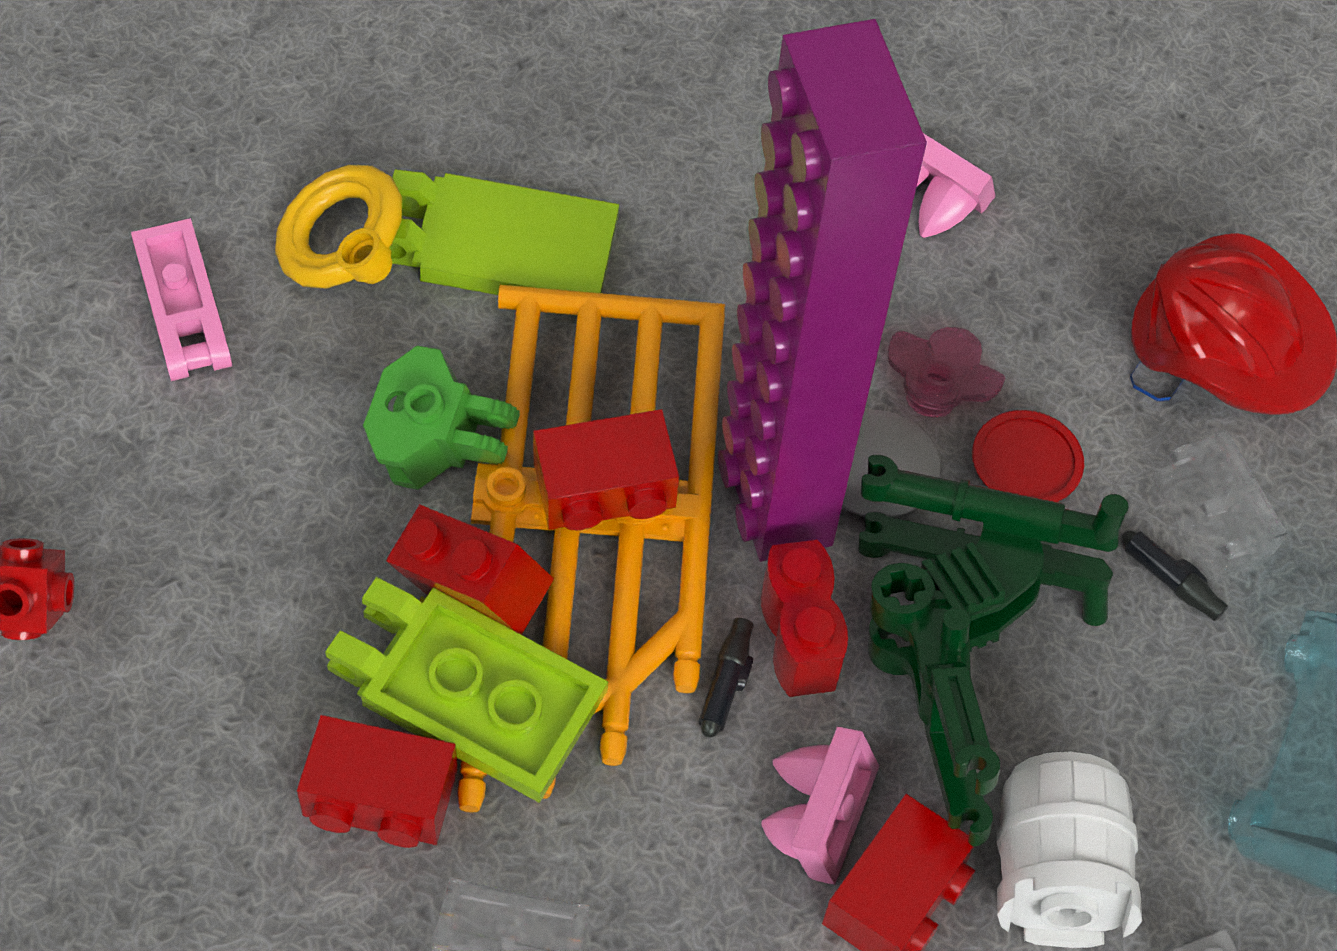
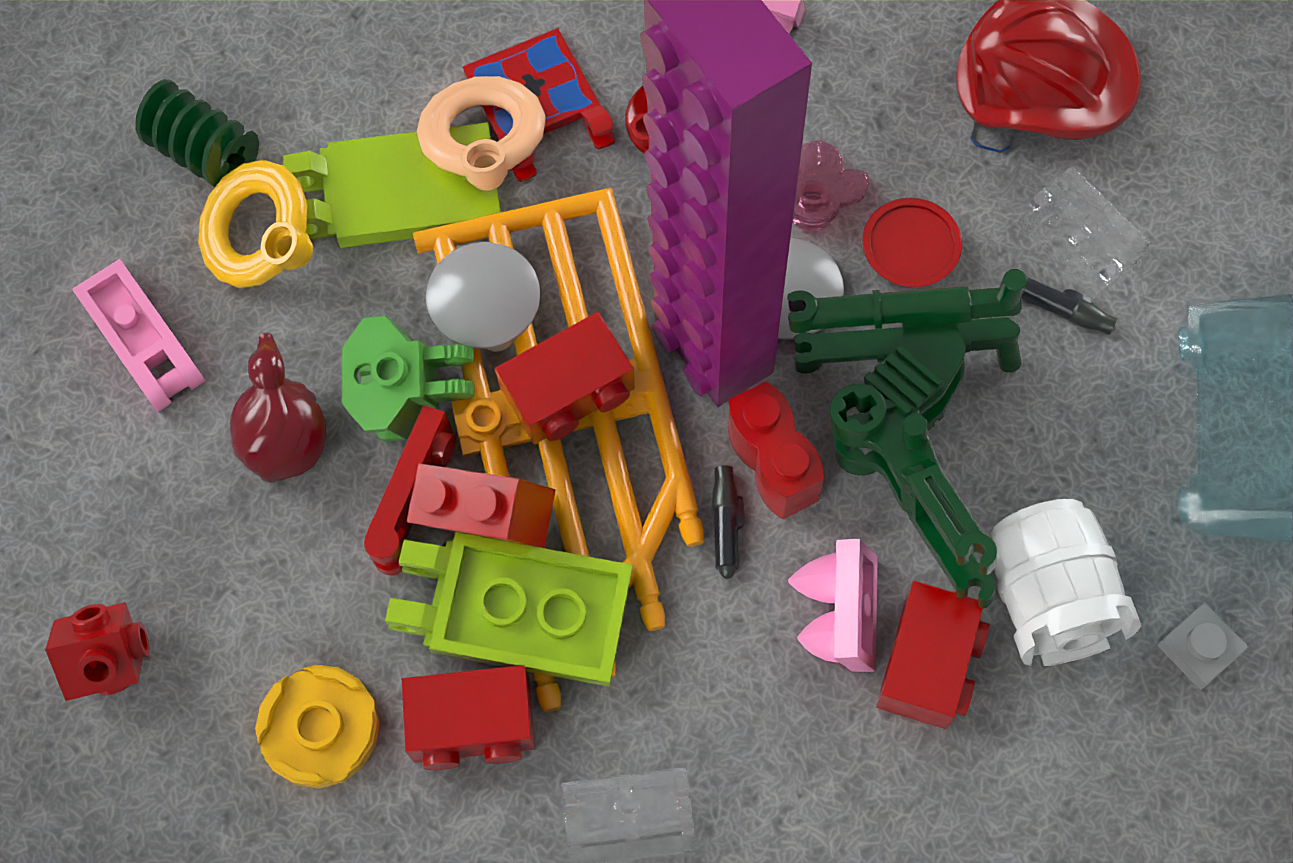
camera: 10 degrees left, 10 degrees up
(226, 761) = (332, 742): none -> yellow tile
(289, 423) = (276, 420): none -> dark red hair
(311, 120) = (193, 132): none -> dark green piece
(440, 489) = (428, 444): none -> red plate
(550, 365) = (483, 295): none -> light grey dish
(601, 236) = (485, 160): none -> light nougat piece
(678, 191) = (555, 77): none -> red flag

